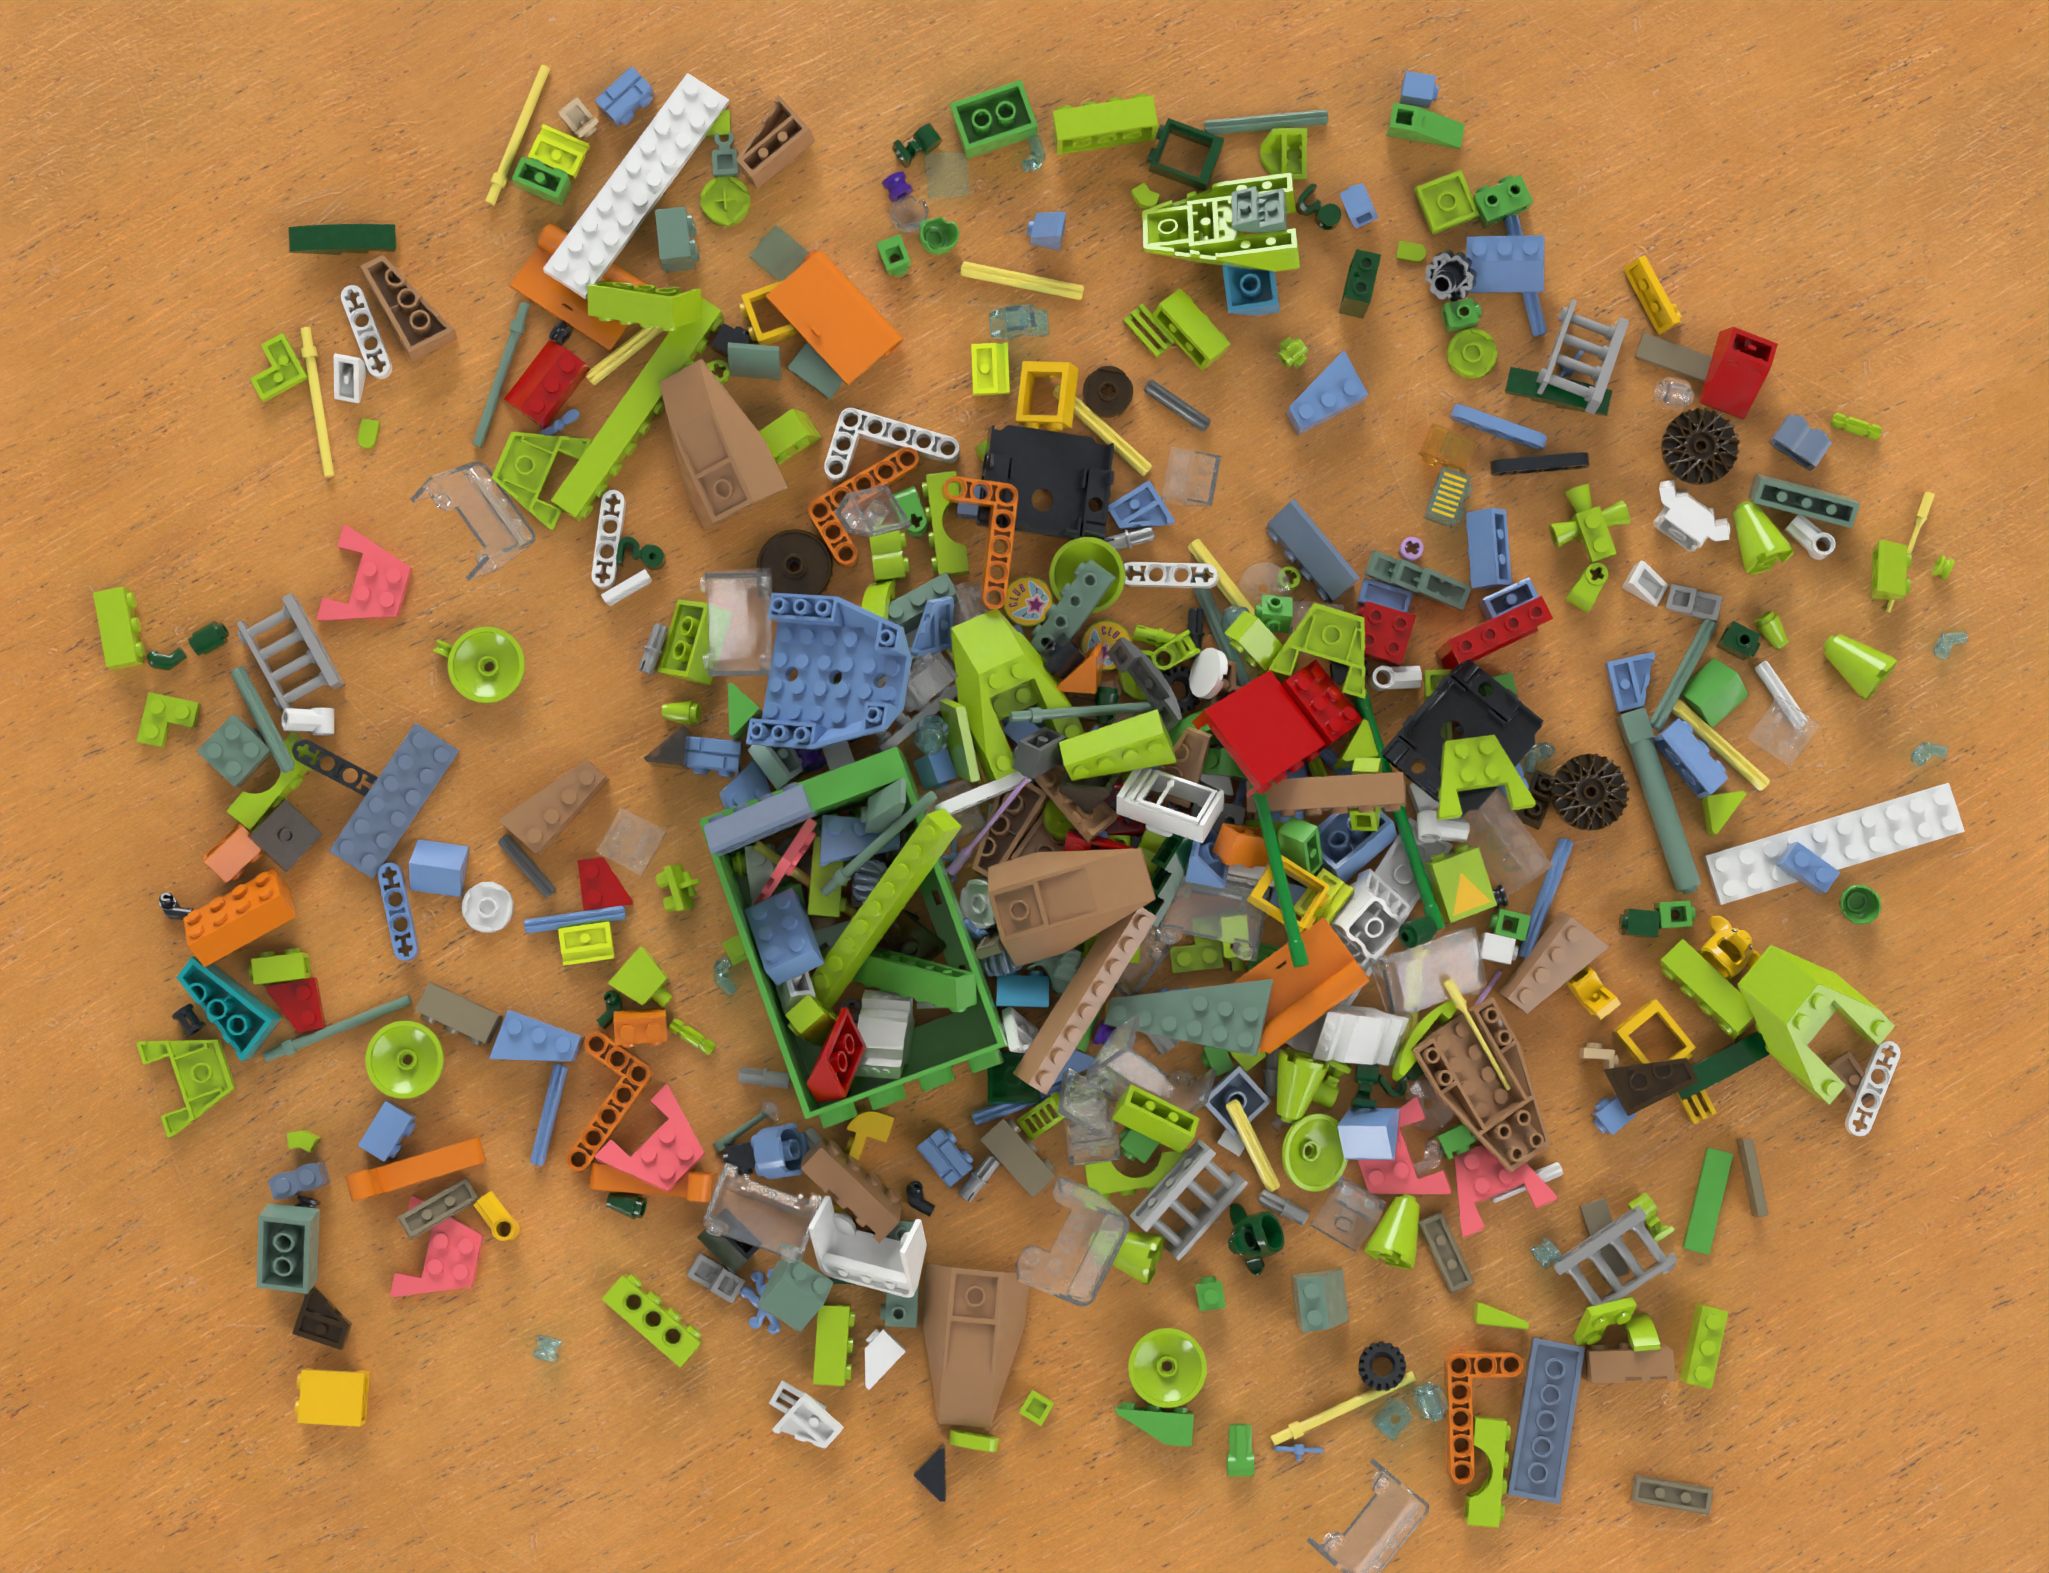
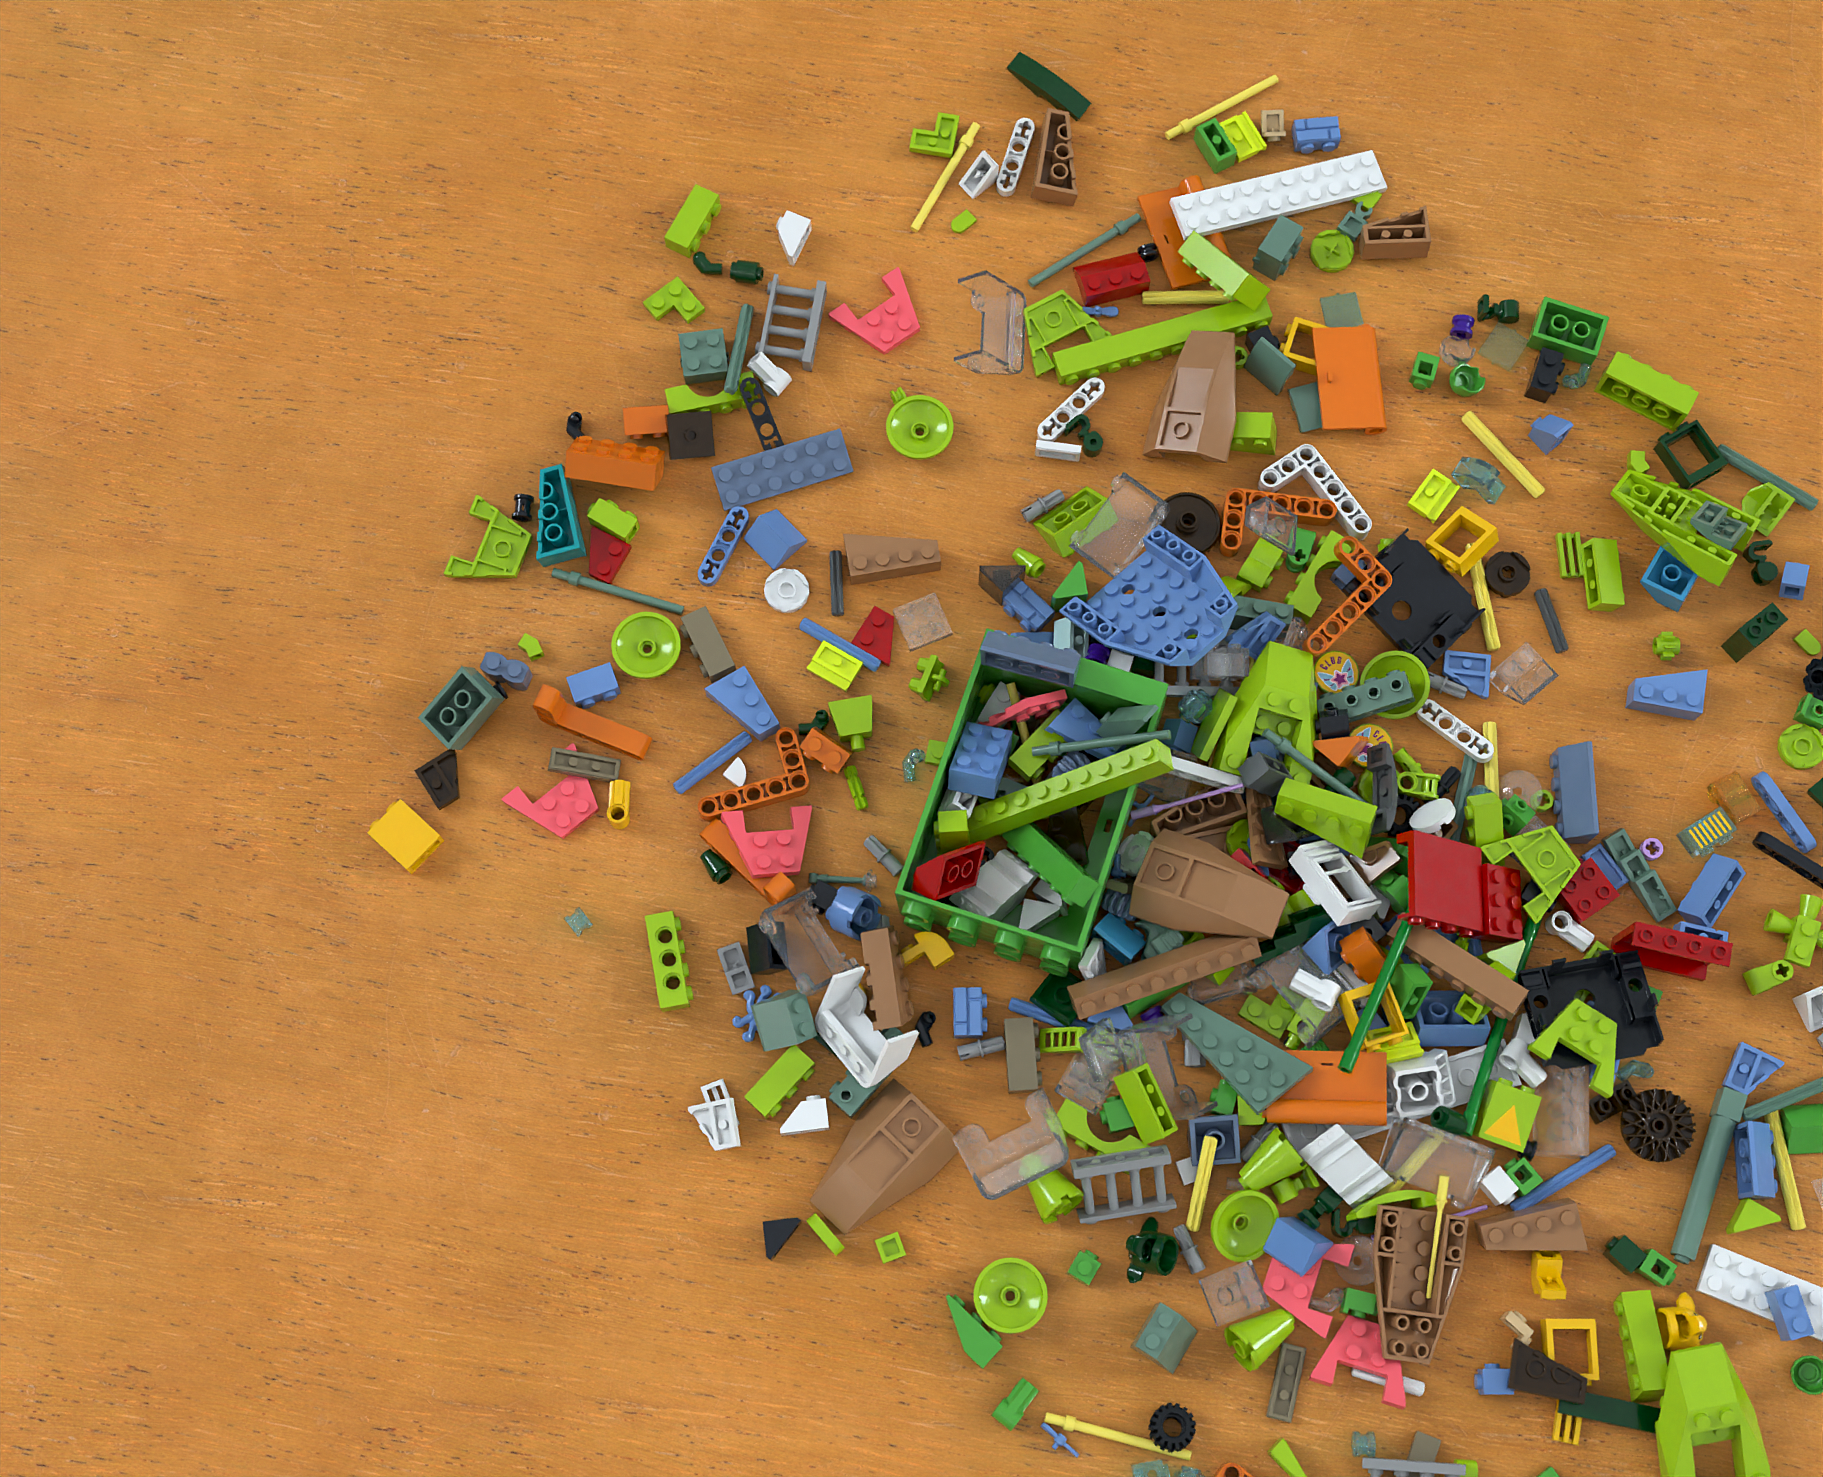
camera: 40 degrees right, 10 degrees down
(222, 567) = (793, 233): none -> white slope
(578, 1107) = (736, 773): none -> white tile
(936, 1030) = (1037, 914): none -> white slope
(1003, 176) = (1544, 375): none -> black brick
(1230, 909) = (1321, 992): none -> white piece

